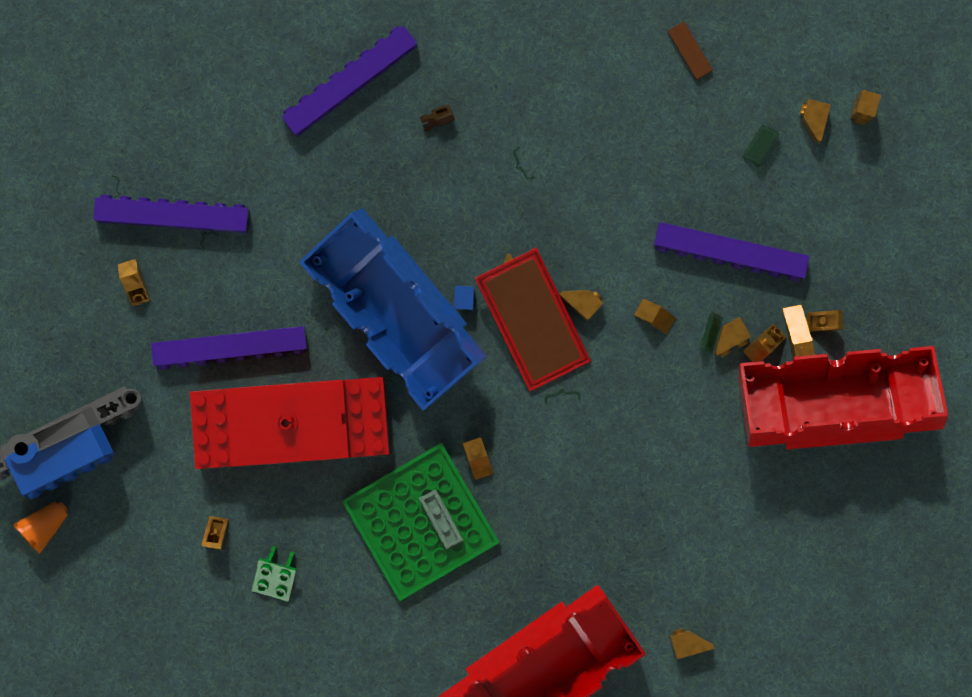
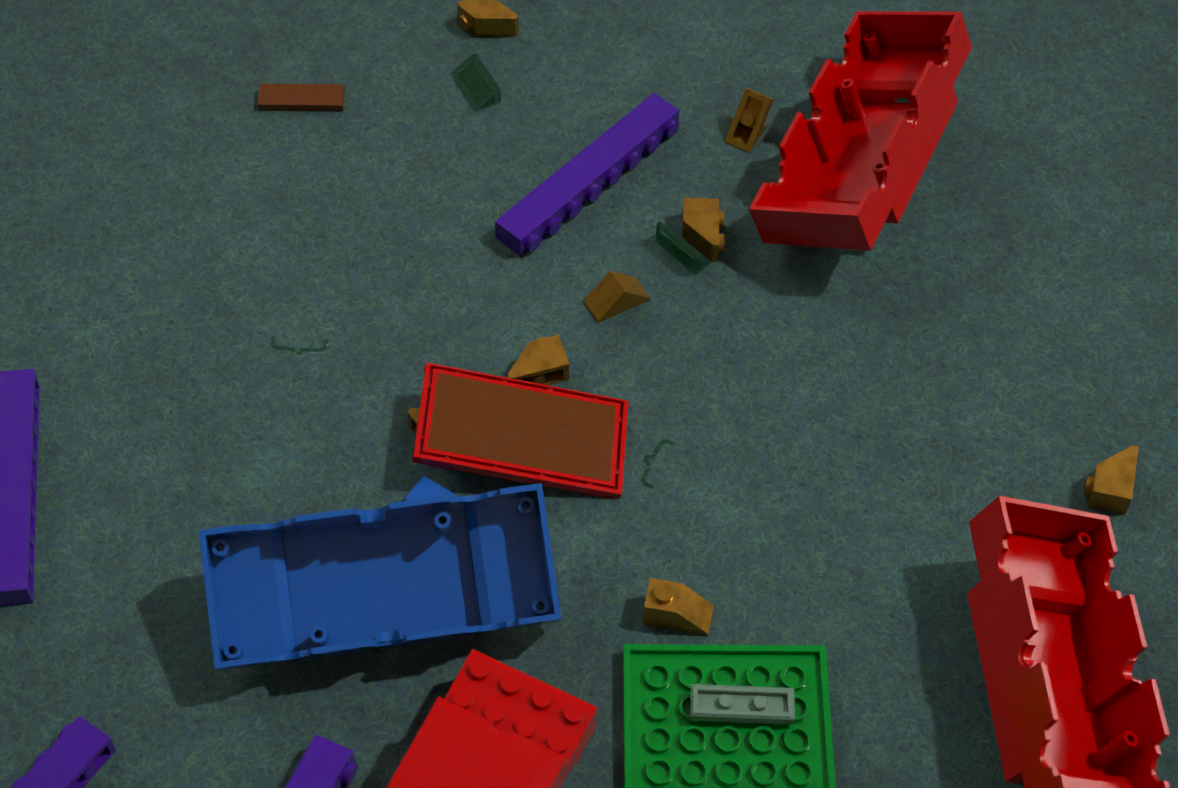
camera: 65 degrees left, 30 degrees down
(439, 116) = (155, 399): dark brown plate -> none
(764, 344) = (736, 195): pearl gold slope -> none
(798, 331) = (748, 157): slope -> none

